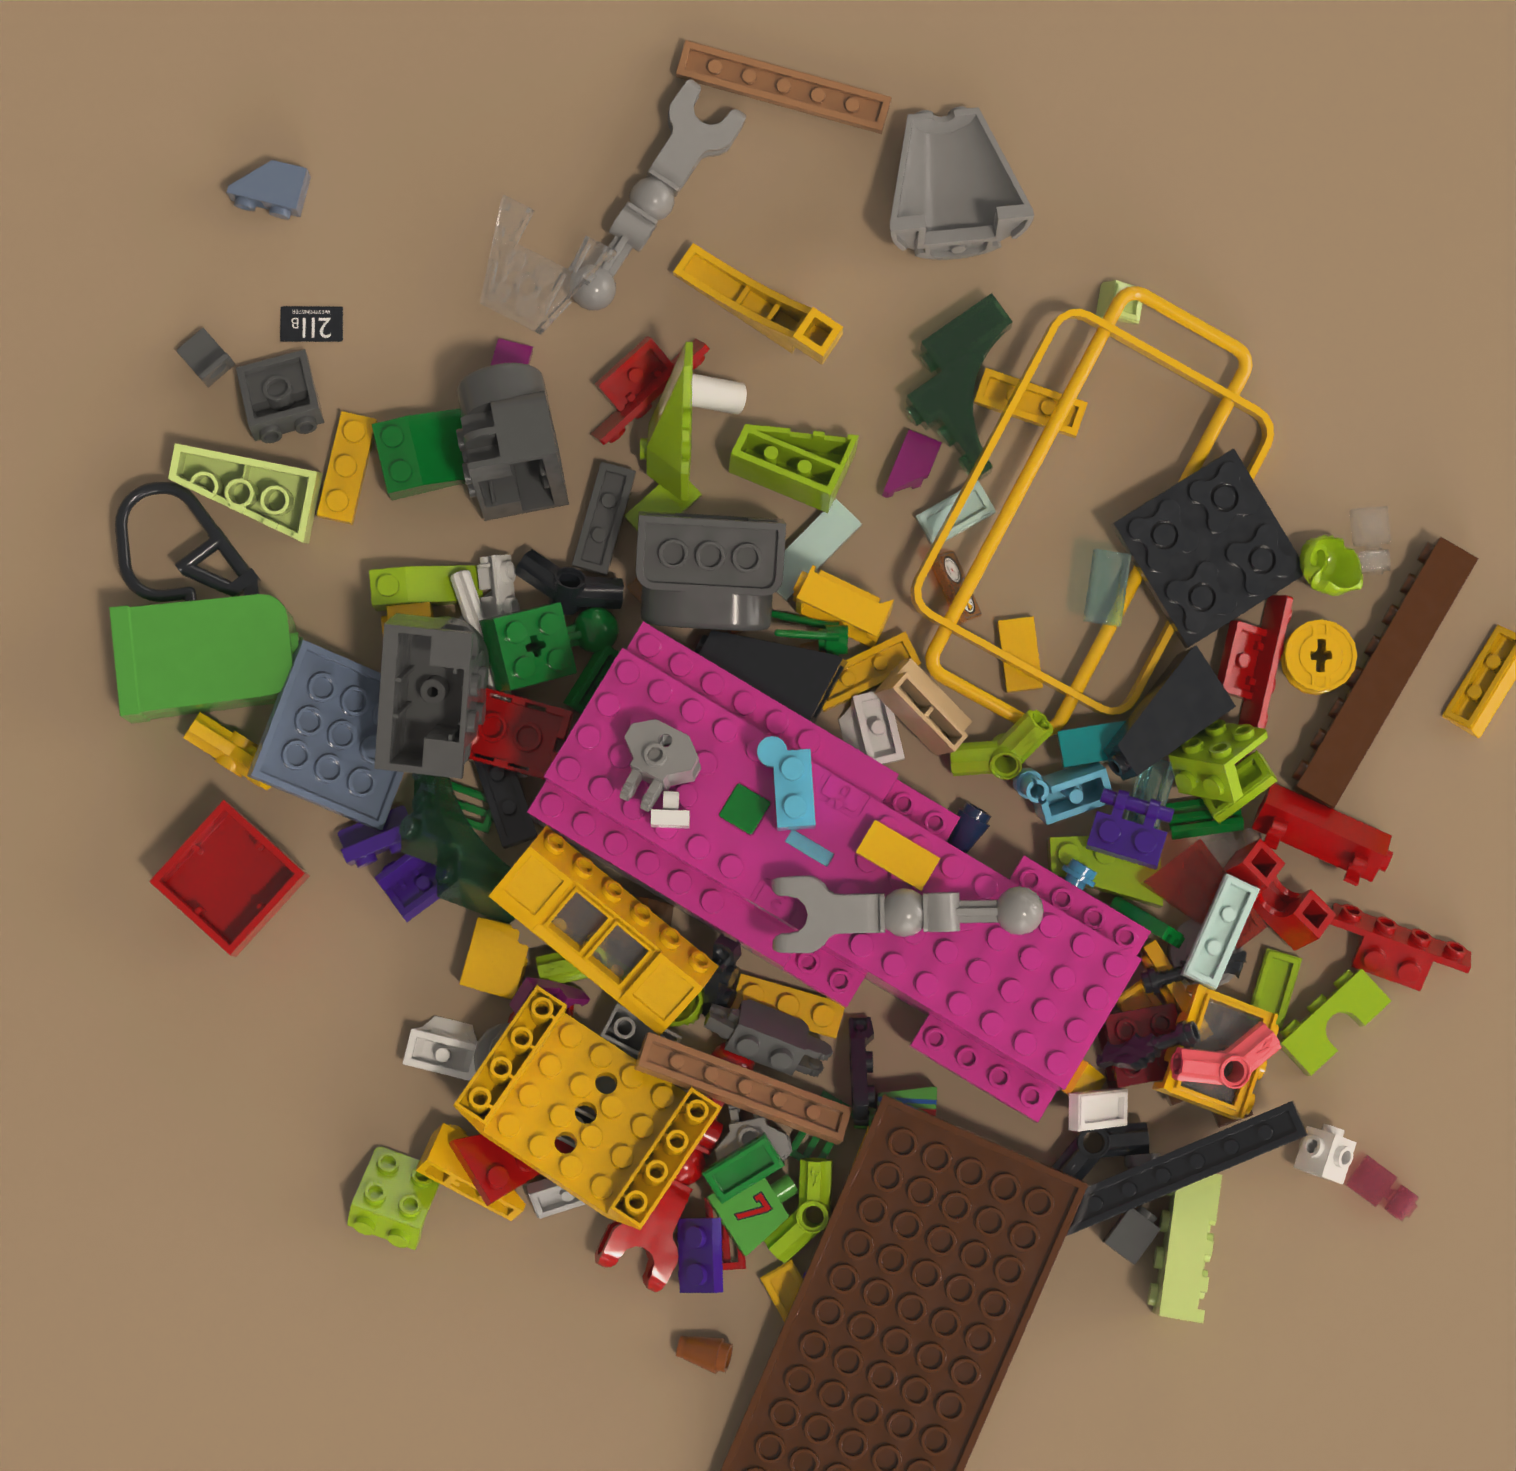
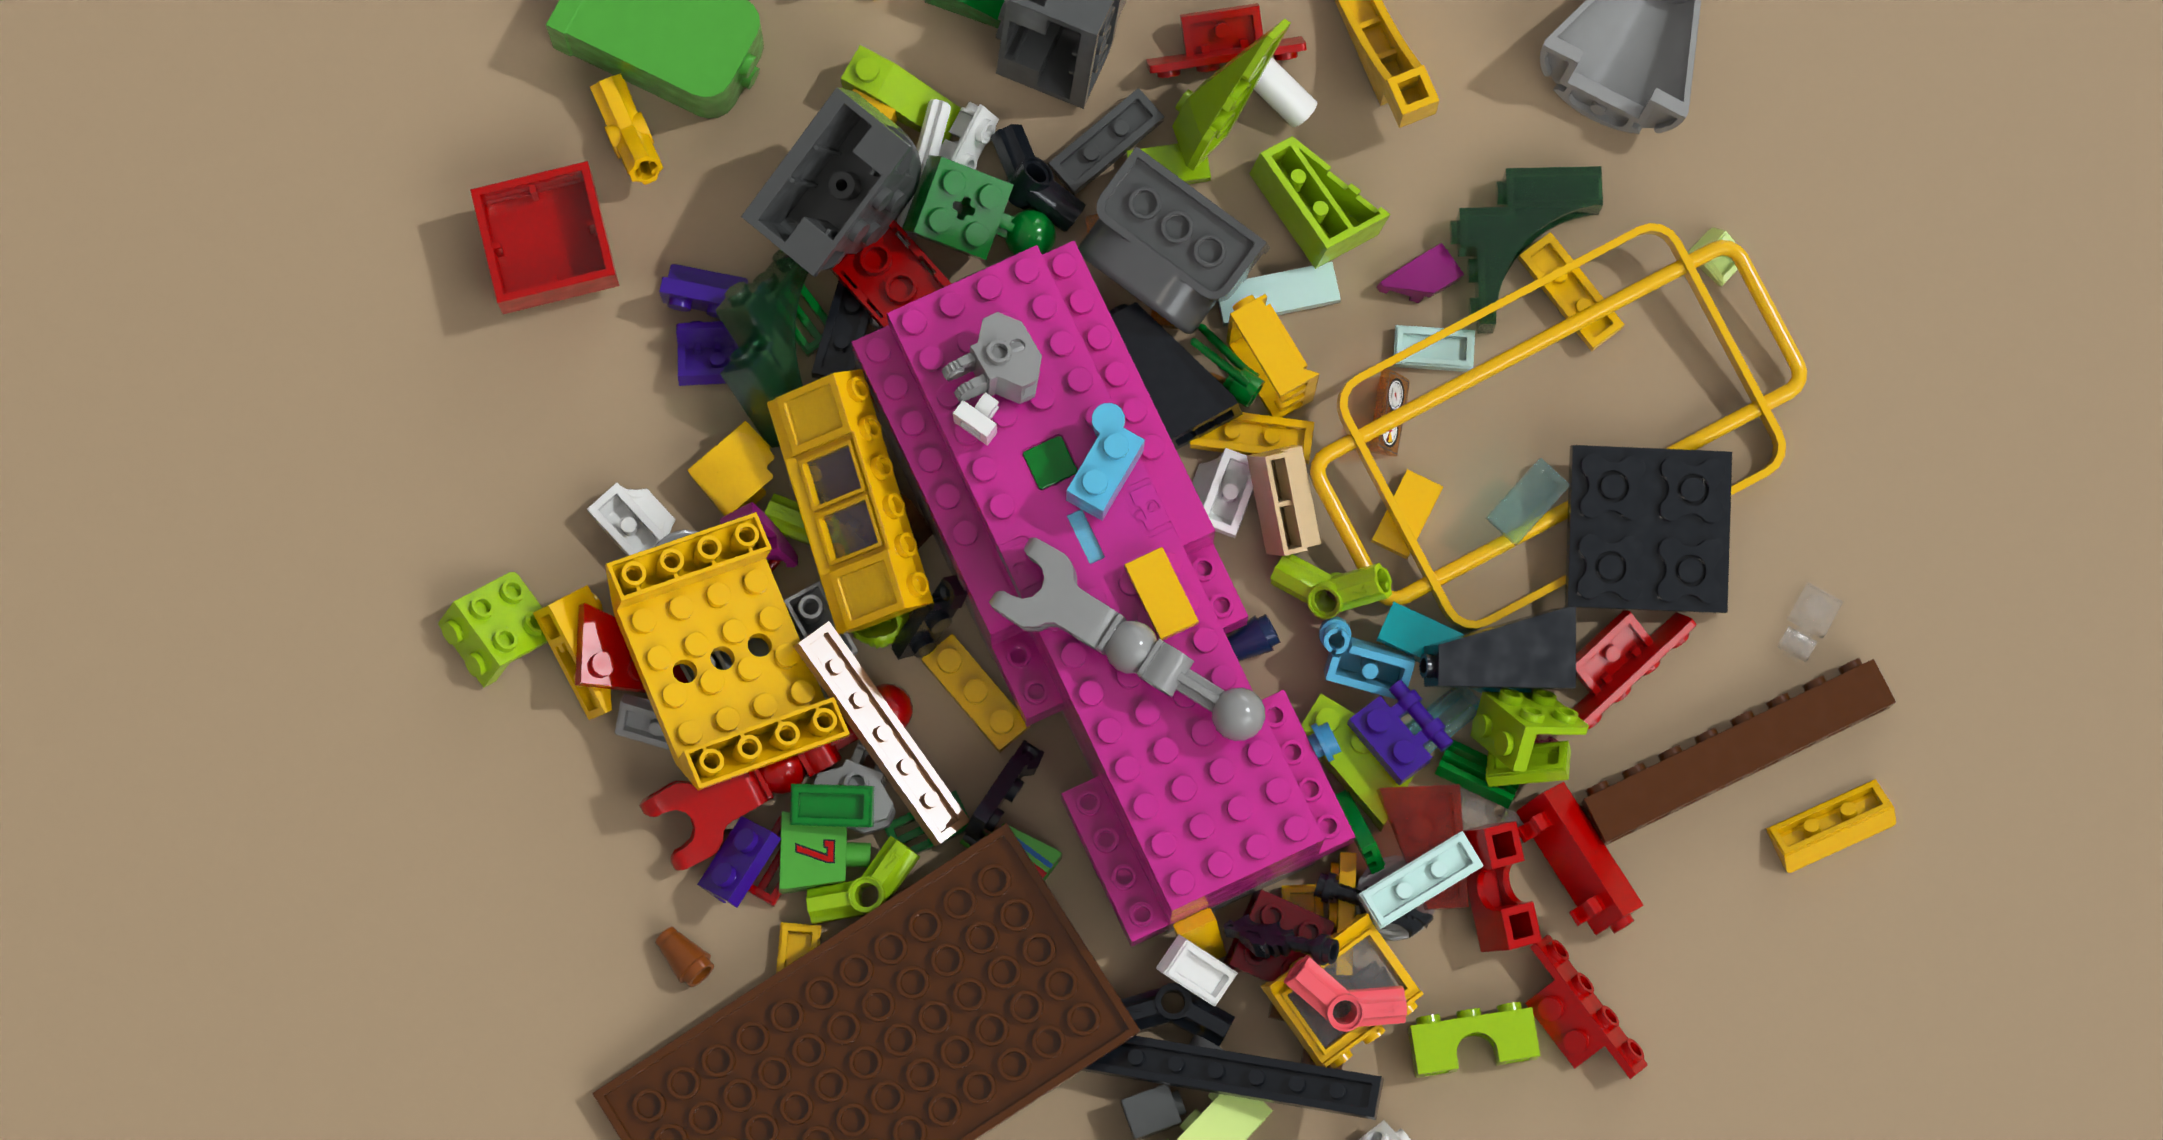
camera: 30 degrees right, 5 degrees down
(325, 738) = (712, 166): sand blue piece -> none
(768, 1037) = (937, 706): dark grey hinge -> none
(1275, 983) = (1443, 972): lime tile -> none
(1330, 565) = (1752, 619): lime hair -> none
(1335, 644) = (1675, 676): yellow piece -> none

